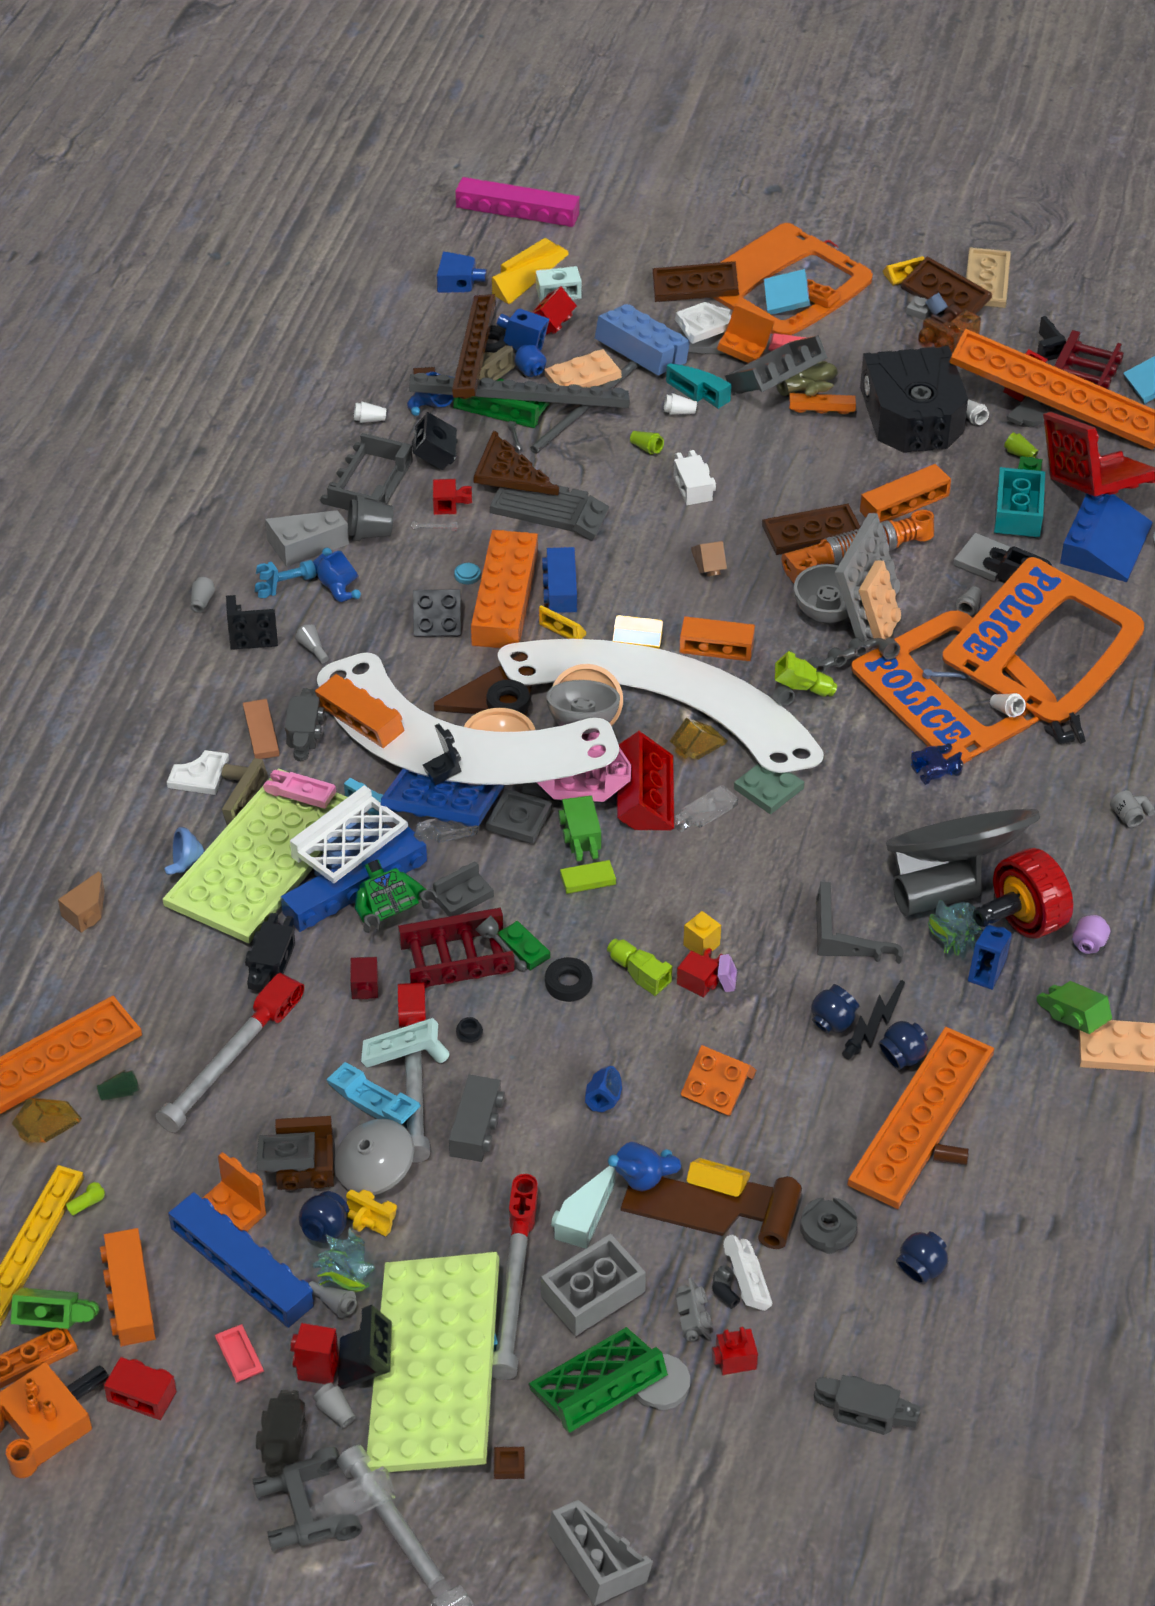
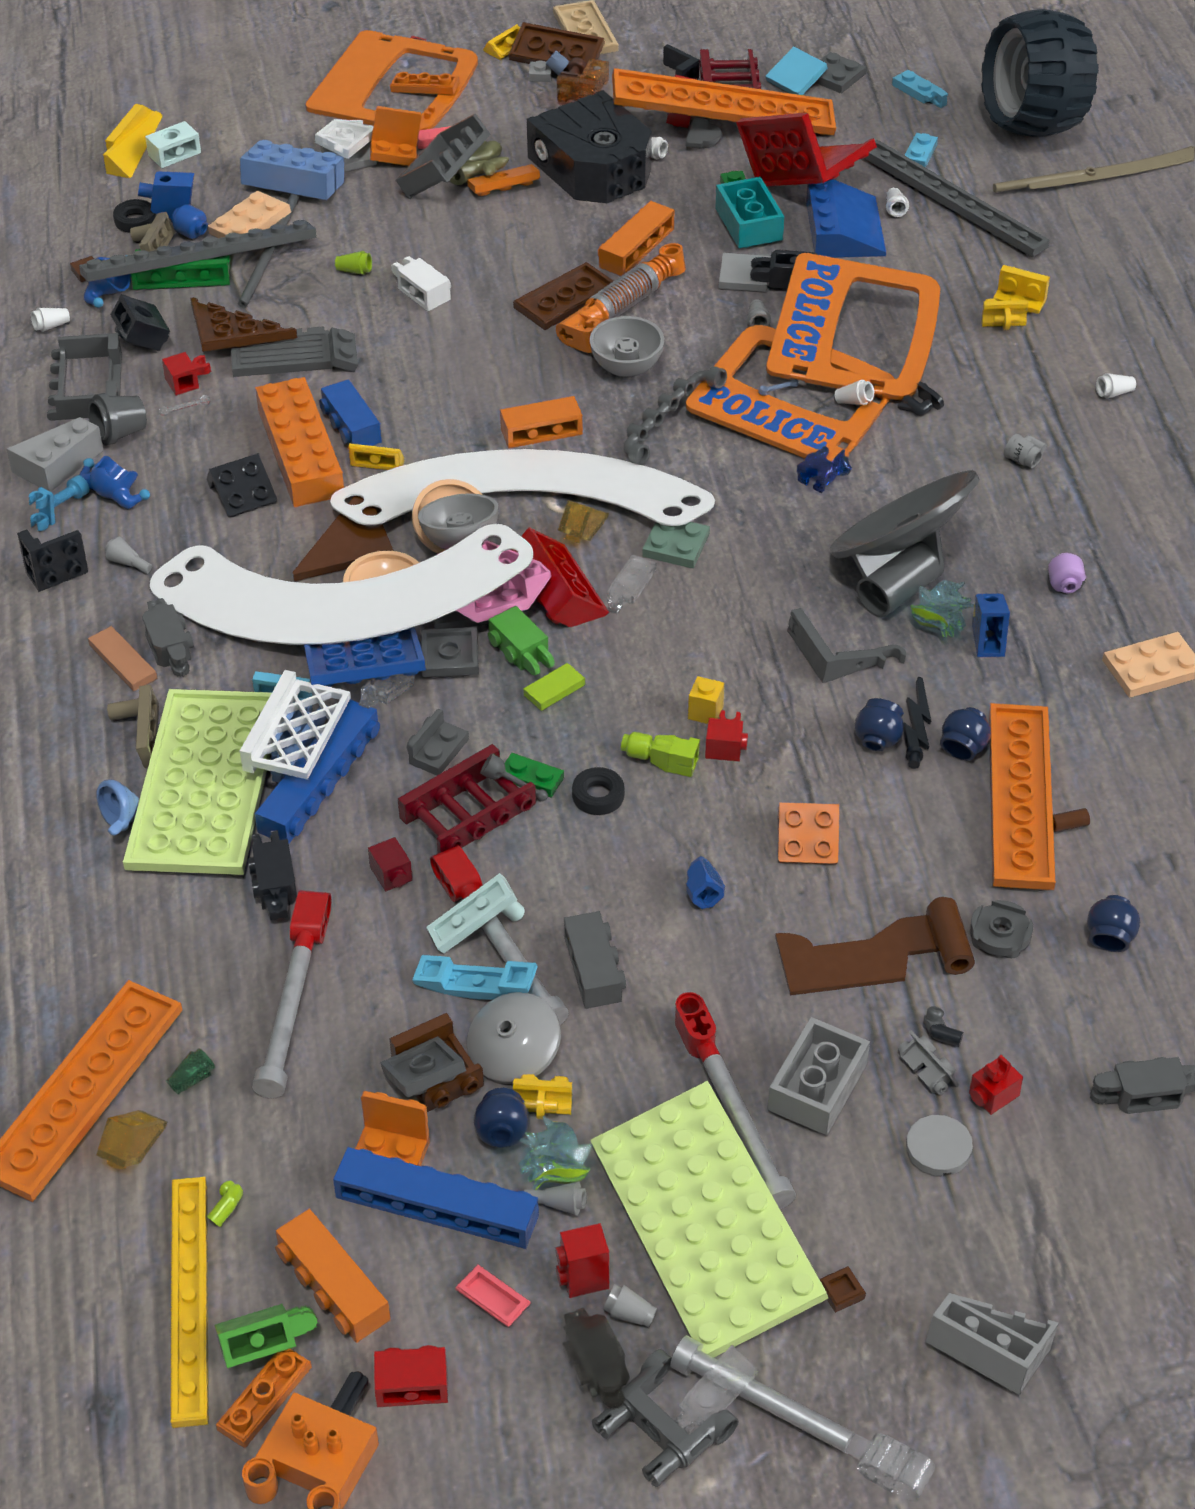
camera: 25 degrees left, 0 degrees up
(84, 903) = (36, 899): medium nougat slope -> none
(200, 775) = (83, 725): white tile -> none
(300, 788) = (208, 699): bright pink hinge -> none
(360, 710) = (225, 602): orange brick -> none
(365, 1351) = (633, 1236): black bracket -> none
(388, 895) = (368, 772): torso -> none
(447, 764) = (355, 621): black bracket -> none
(458, 273) = (62, 161): blue torso -> none
(467, 573) = (247, 440): medium azure piece -> none
(469, 1030) = (529, 876): black plate -> none
(474, 346) = (130, 221): reddish brown plate -> none
(508, 687) = (368, 531): black tyre -> none
(512, 426) = (205, 288): flat silver hinge -> none
(517, 201) = (82, 80): dark pink brick -> none
(557, 308) = (187, 160): red brick -> none
(583, 1209) = (759, 1012): light aqua slope -> none
(605, 1389) = (902, 1170): green fence -> none
(638, 631) = (457, 439): slope -> none
(643, 1166) = (796, 939): blue piece -> none
(678, 405) = (364, 221): white cone -> none
(695, 281) = (309, 105): reddish brown tile -> none
(699, 384) = (373, 196): teal slope -> none
(710, 558) = (486, 349): medium nougat slope -> none
(717, 1176) = (867, 925): yellow slope -> none
(727, 973) = (753, 728): lavender tile -> none
(748, 1273) = (956, 1004): white hinge -> none
(786, 292) = (407, 89): medium azure tile -> none
(803, 676) = (650, 428): lime piece -> none
(864, 550) = (663, 316): light grey piece -> none
(880, 601) = (684, 334): light nougat plate -> none
(1019, 446) = (714, 165): lime cone -> none
(1029, 894) = (999, 551): red wheel -> none
(1076, 1006) = (1097, 641): bright green hinge -> none

